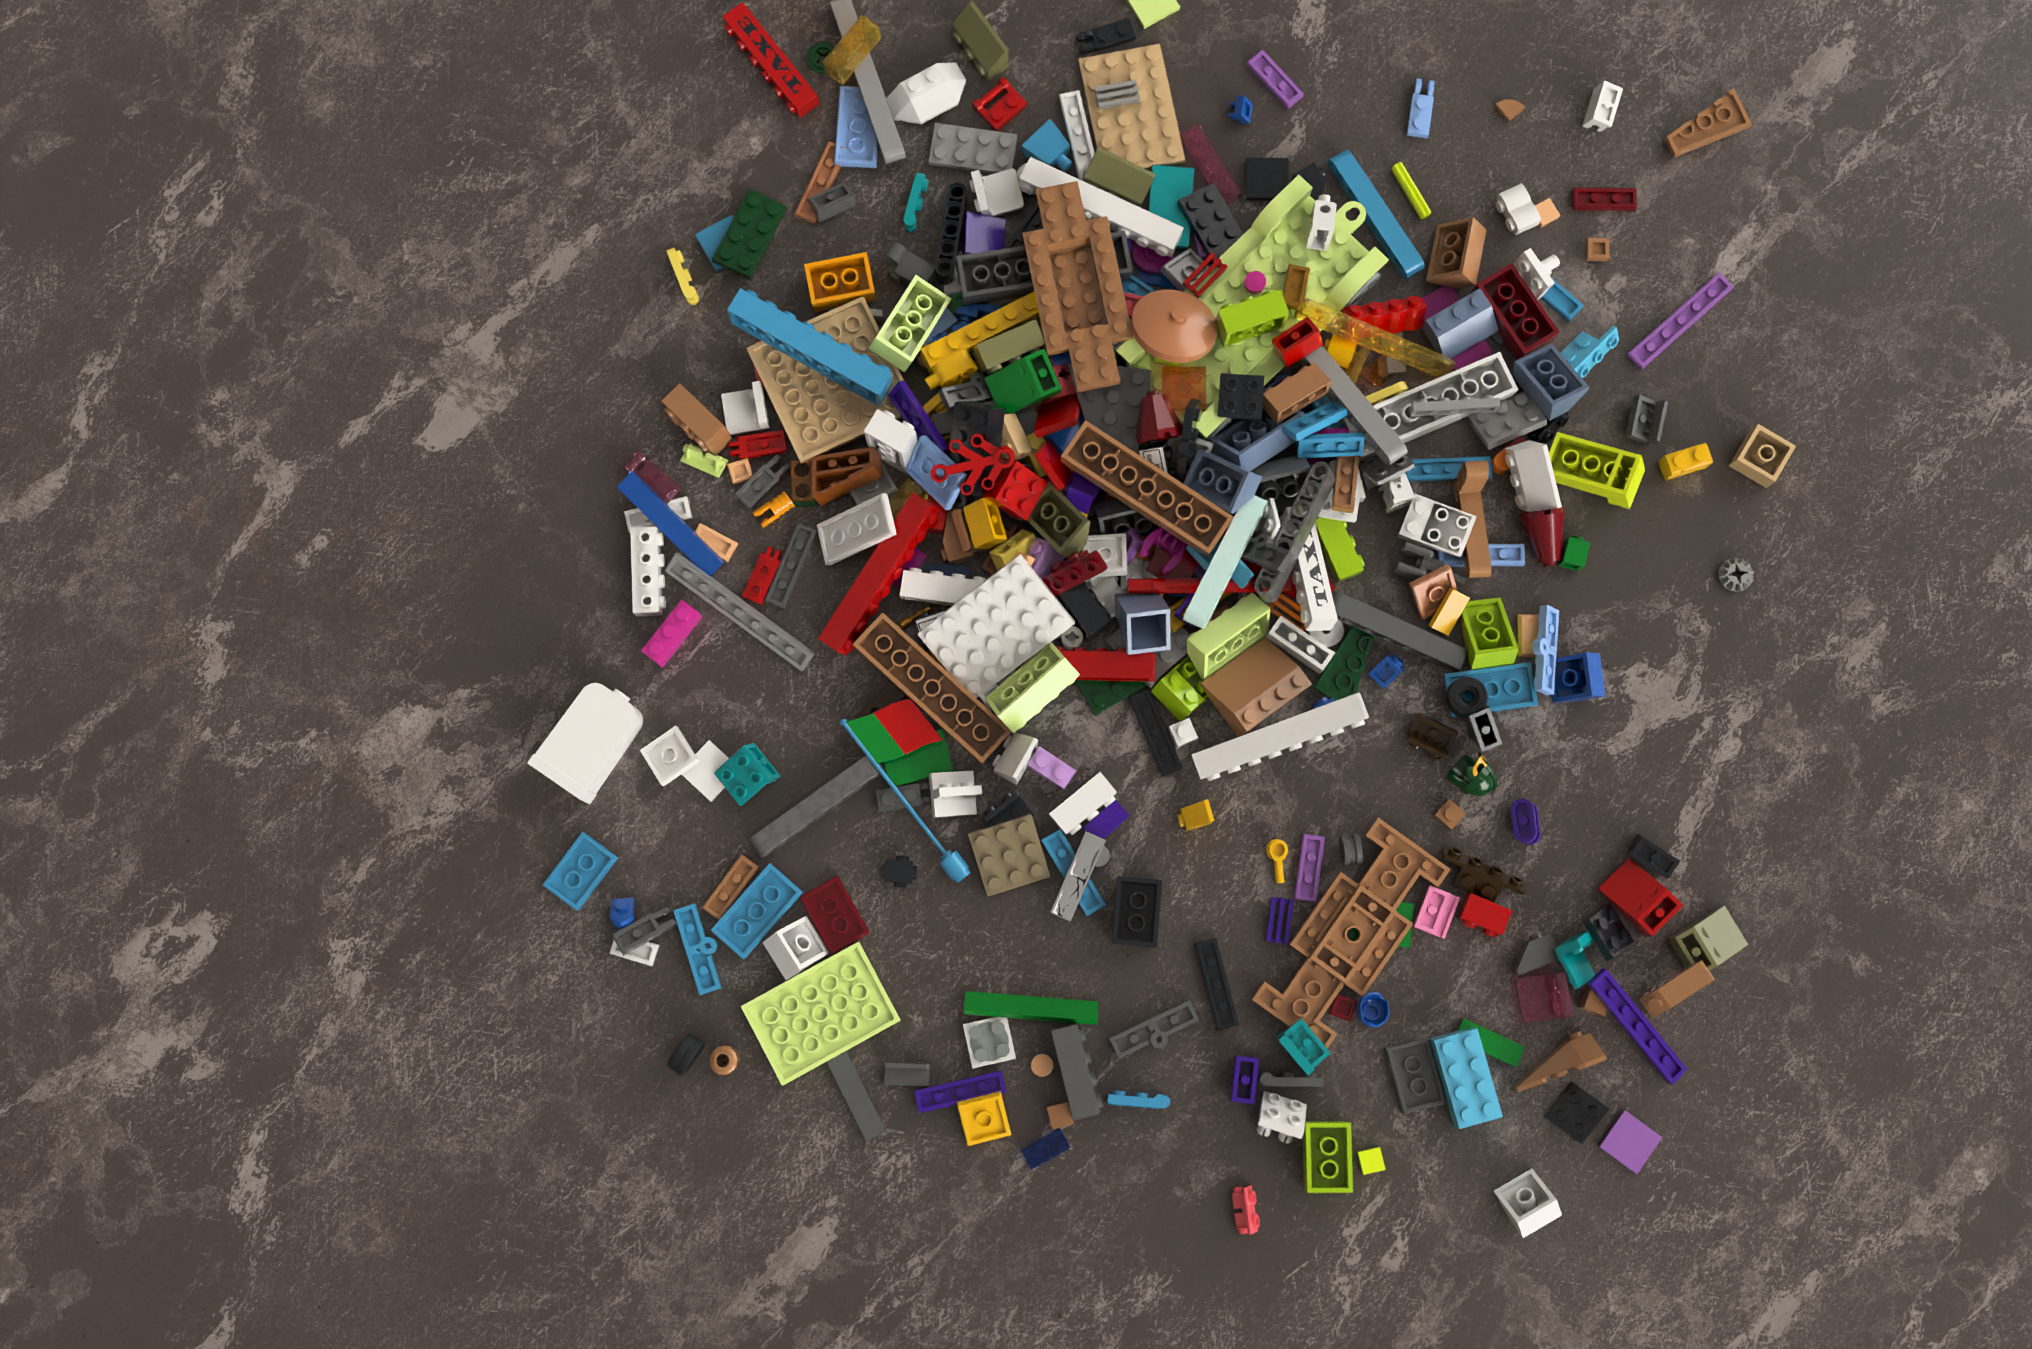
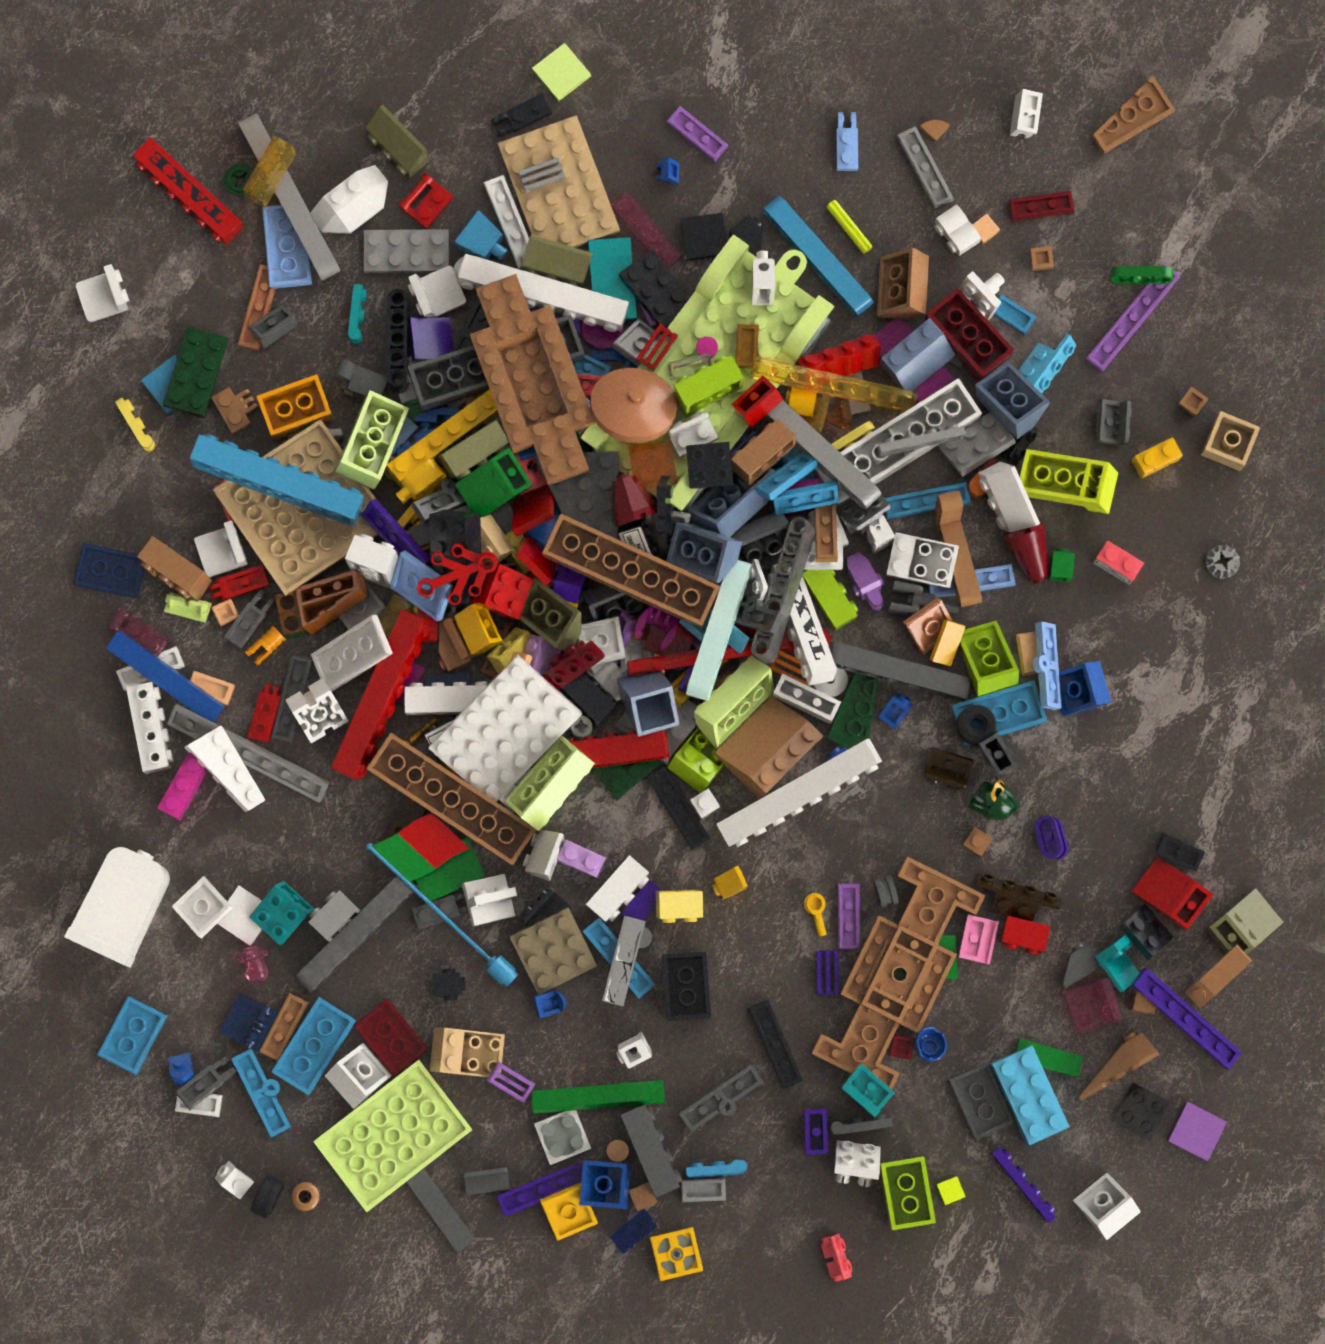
camera: 15 degrees left, 0 degrees up
(633, 413) = (109, 571): none -> dark blue tile
(655, 1031) = (233, 1180): none -> white bracket
(672, 147) = (103, 295): none -> white bracket
(696, 877) = (248, 1022): none -> dark blue hinge
(712, 823) = (255, 966): none -> clear pink animal
(713, 616) = (224, 763): none -> white wing
(782, 275) = (235, 408): none -> medium nougat hinge
(797, 784) = (333, 915): none -> light grey brick
(813, 580) = (317, 710): none -> white brick
(907, 942) = (466, 1052): none -> tan slope
(932, 967) = (495, 1072): none -> medium lavender tile
(997, 906) = (549, 1003): none -> blue plate
(1024, 1098) = (605, 1184): none -> blue slope
(1076, 974) = (633, 1058): none -> white brick
(1085, 1179) = (676, 1254): none -> yellow piece
(1122, 1119) = (703, 1190): none -> light grey tile
(1141, 829) = (679, 904): none -> light yellow brick
(1229, 361) = (693, 432): none -> white bracket
(1233, 296) = (688, 366): none -> clear tile
(1375, 537) = (865, 580): none -> medium lavender hinge
(1451, 1174) = (1031, 1192): none -> dark purple plate
(1494, 145) = (925, 168): none -> light grey tile
(1632, 559) = (1118, 562): none -> coral brick
(1696, 279) = (1142, 275): none -> green beam
(1729, 412) = (1193, 401): none -> medium nougat plate

